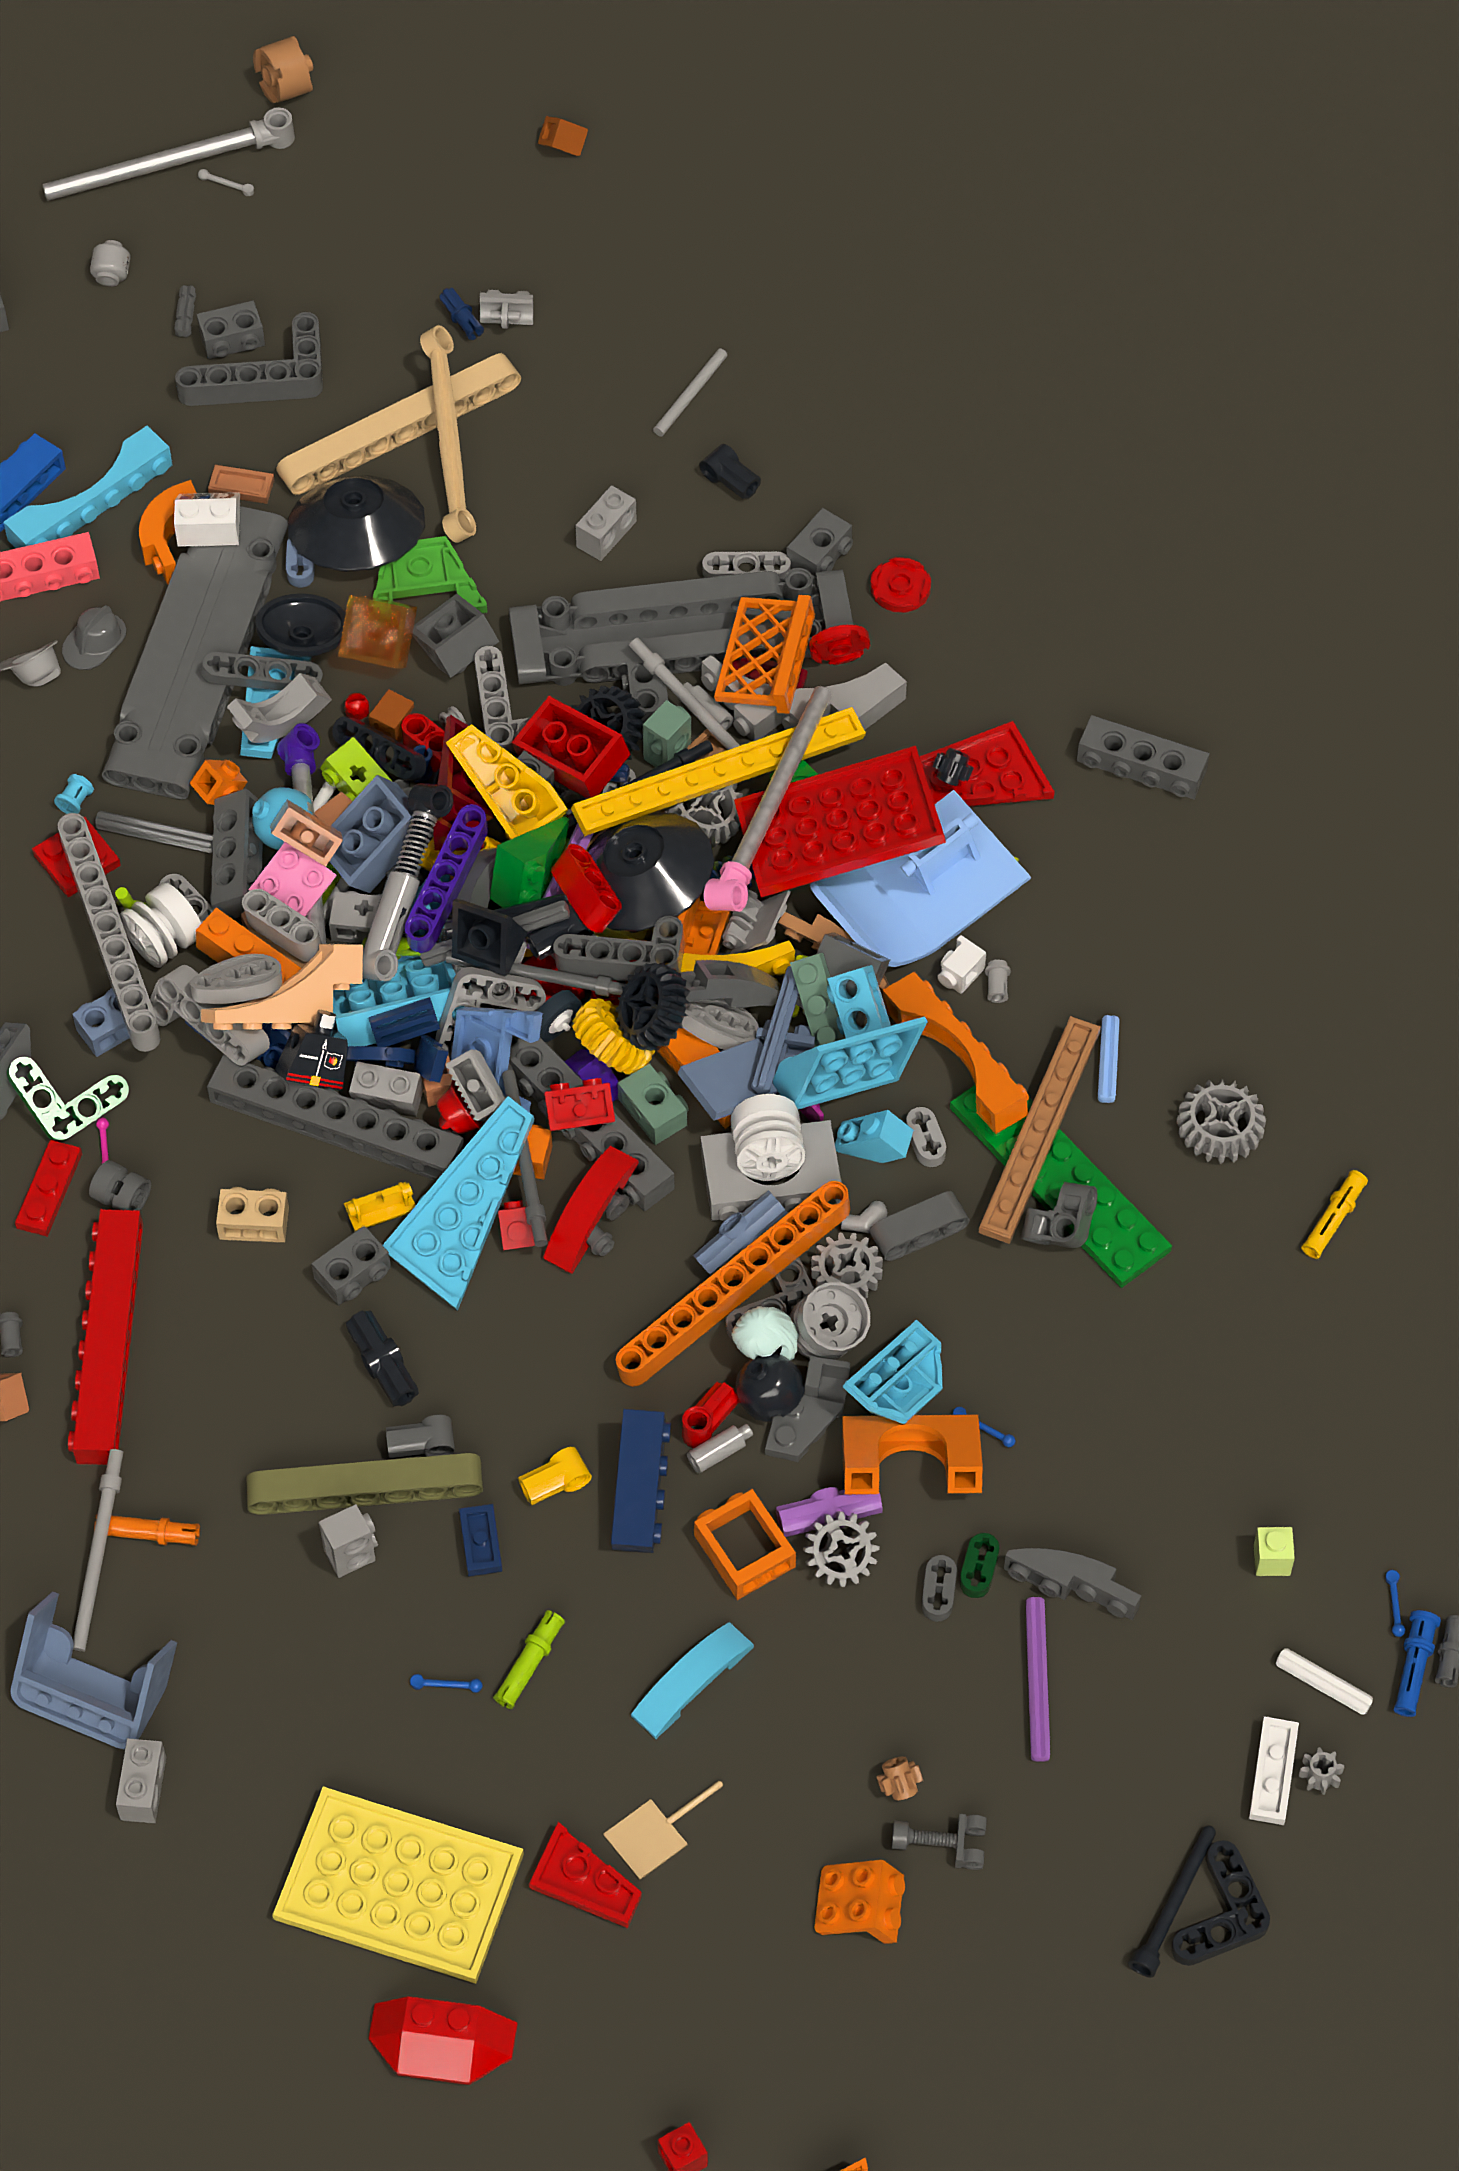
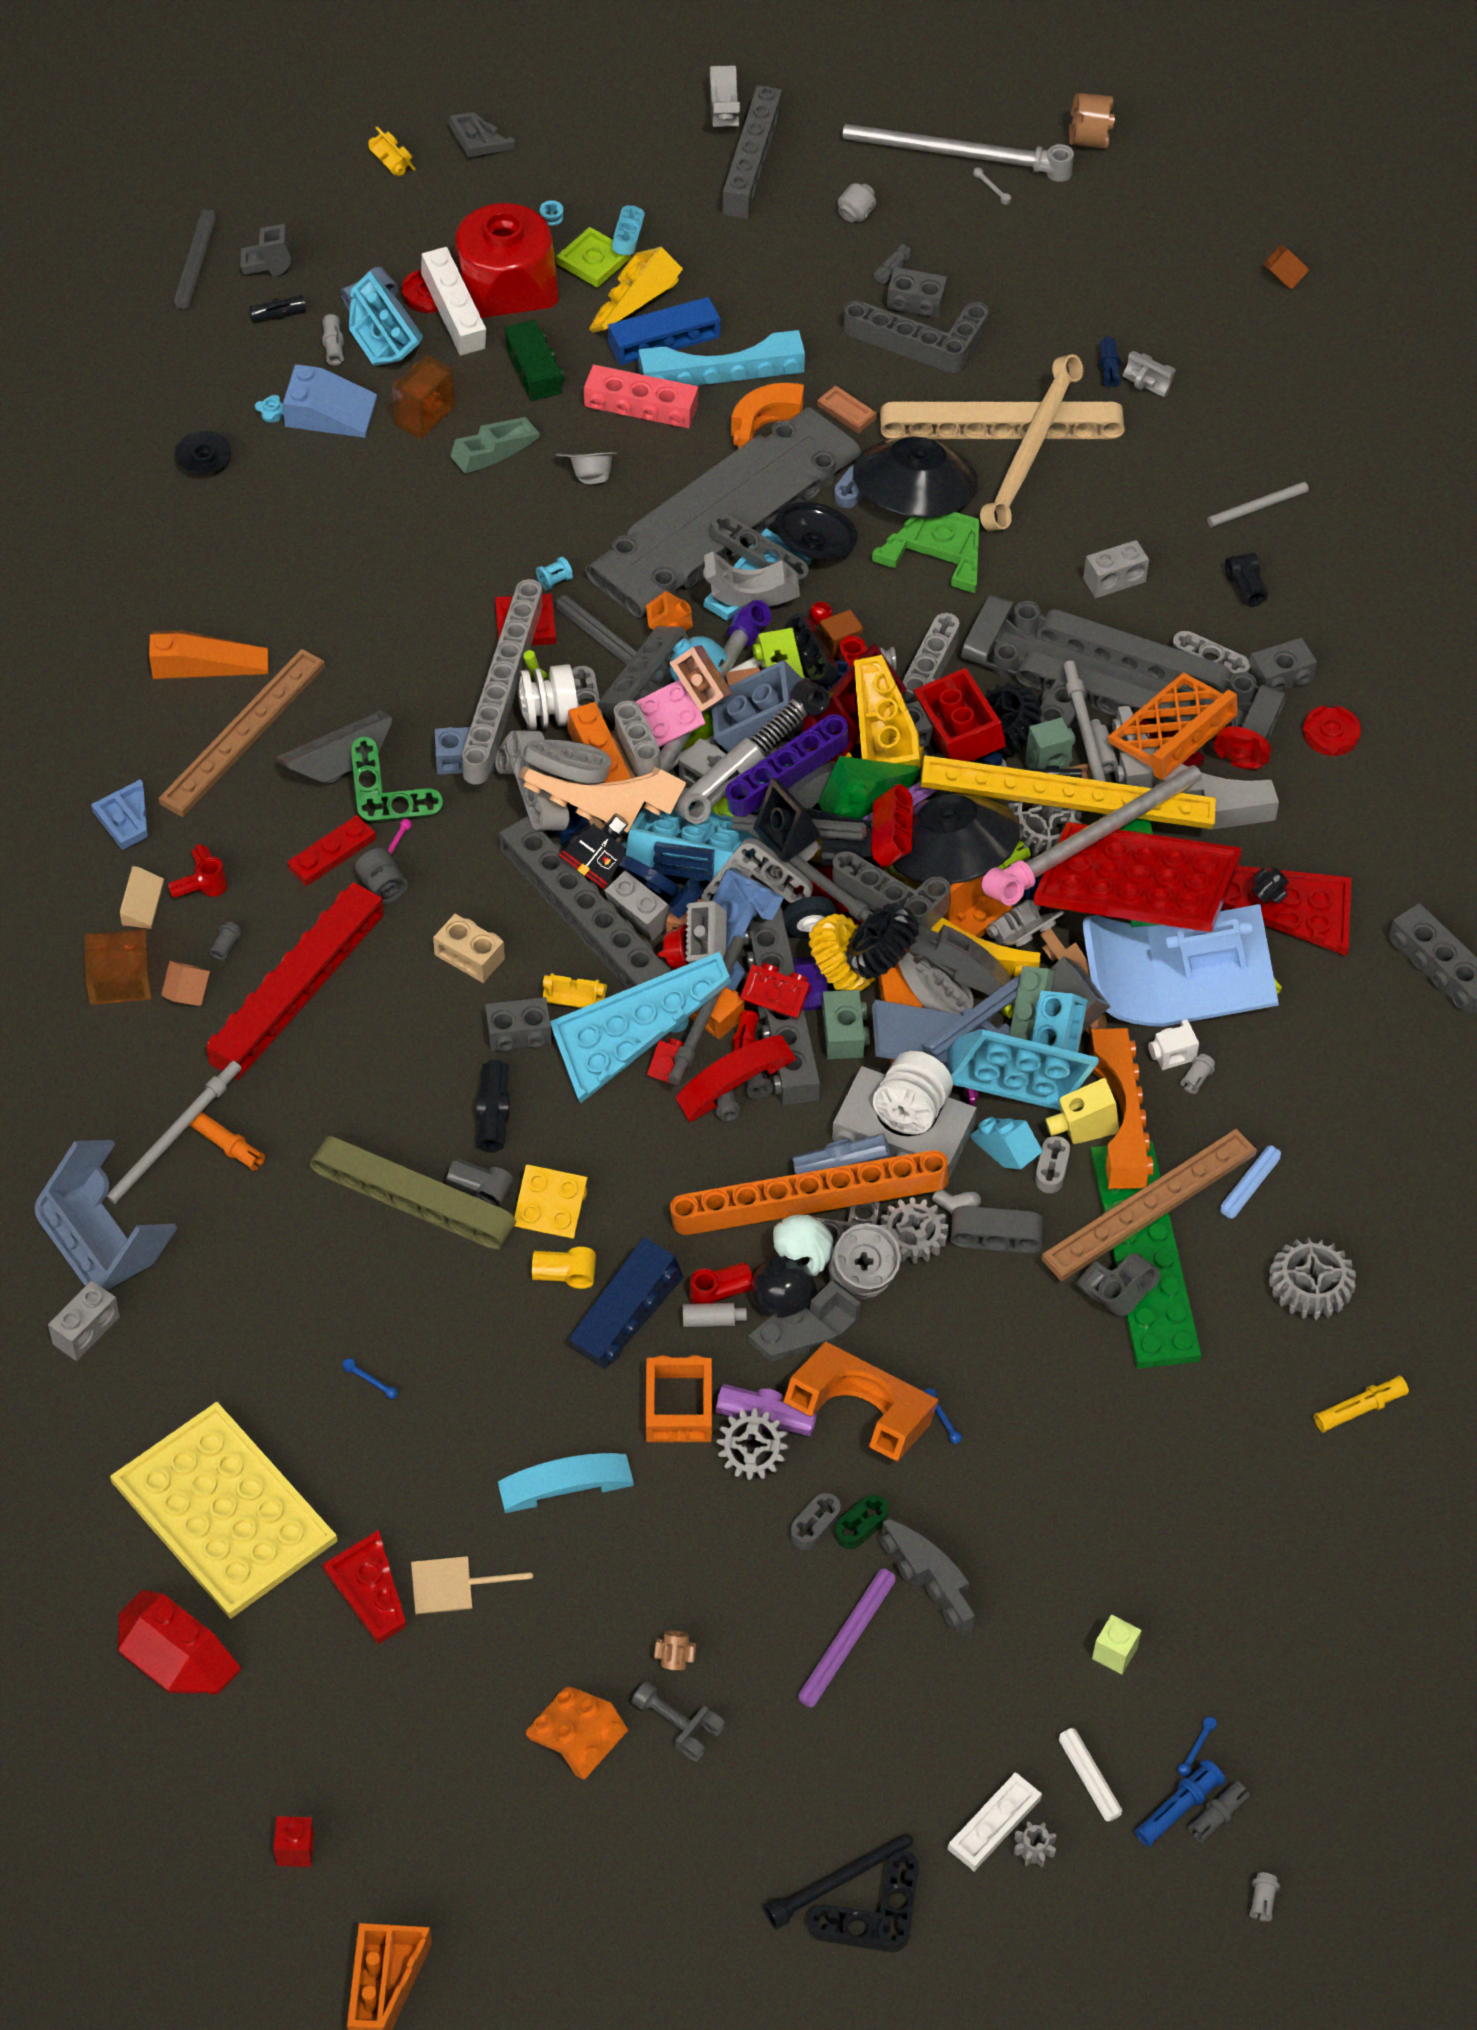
camera: 30 degrees right, 5 degrees down
(93, 638) = (653, 468): dark grey piece -> none
(207, 519) = (793, 417): white slope -> none
(348, 1540) = (365, 1225): light grey brick -> none
(377, 631) = (871, 562): clear orange brick -> none
(454, 635) = (931, 593): dark grey slope -> none
(480, 1540) = (472, 1283): dark blue plate -> none
(499, 1421) = (550, 1201): none -> yellow hinge
(536, 1648) = (439, 1398): lime pin -> none
(564, 1151) = (746, 1029): none -> red pin
(900, 1376) = (892, 1333): medium azure wedge -> none
(929, 1073) = (1086, 1113): none -> light yellow torso

